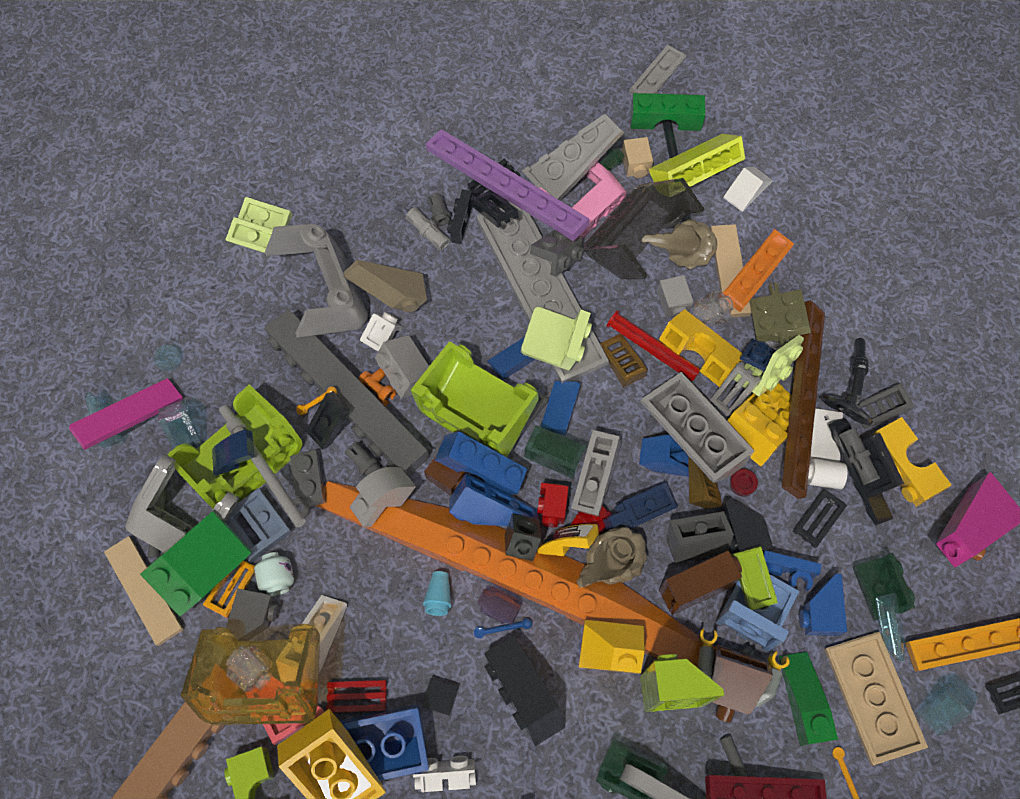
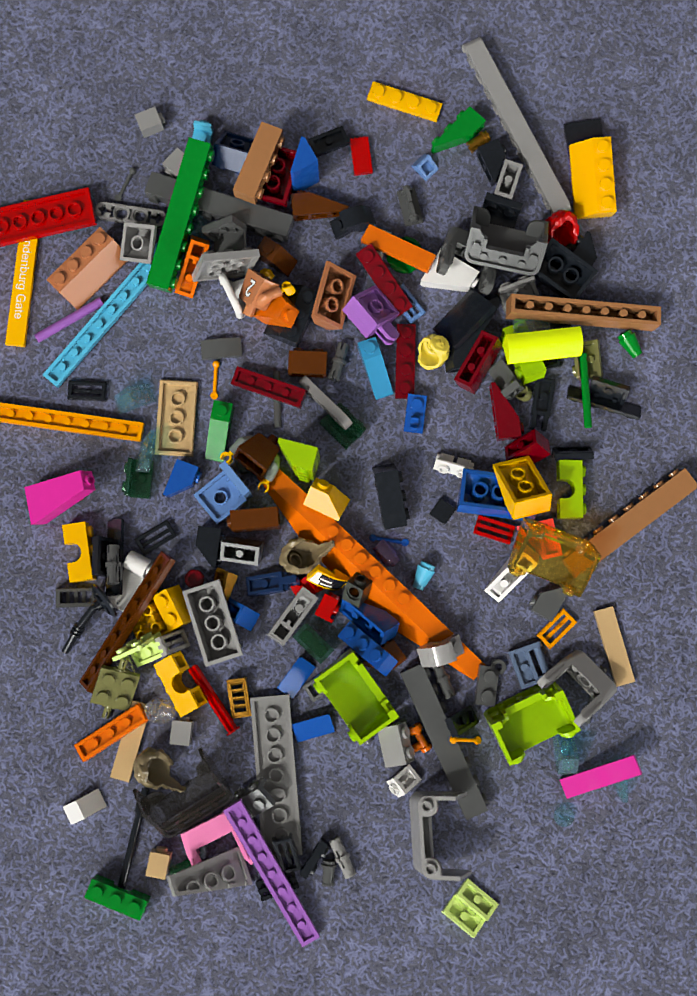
camera: 160 degrees left, 15 degrees up
(196, 563) = (575, 646): green slope -> none
(232, 451) = (533, 717): dark blue slope -> none
(234, 425) = (526, 737): light grey bar -> none
(249, 668) = (556, 561): clear head -> none
(274, 574) = (526, 625): light aqua head -> none
(391, 285) = (386, 810): dark tan slope -> none
(556, 337) = (282, 725): yellowish green bracket -> none
(659, 71) = (107, 941): light grey tile -> none
(701, 160) = (114, 839): neon yellow brick -> none
(755, 579) = (219, 511): lime tile -> none
(758, 354) = (146, 660): dark blue slope -> none
(800, 568) = (199, 516): blue plate -> none

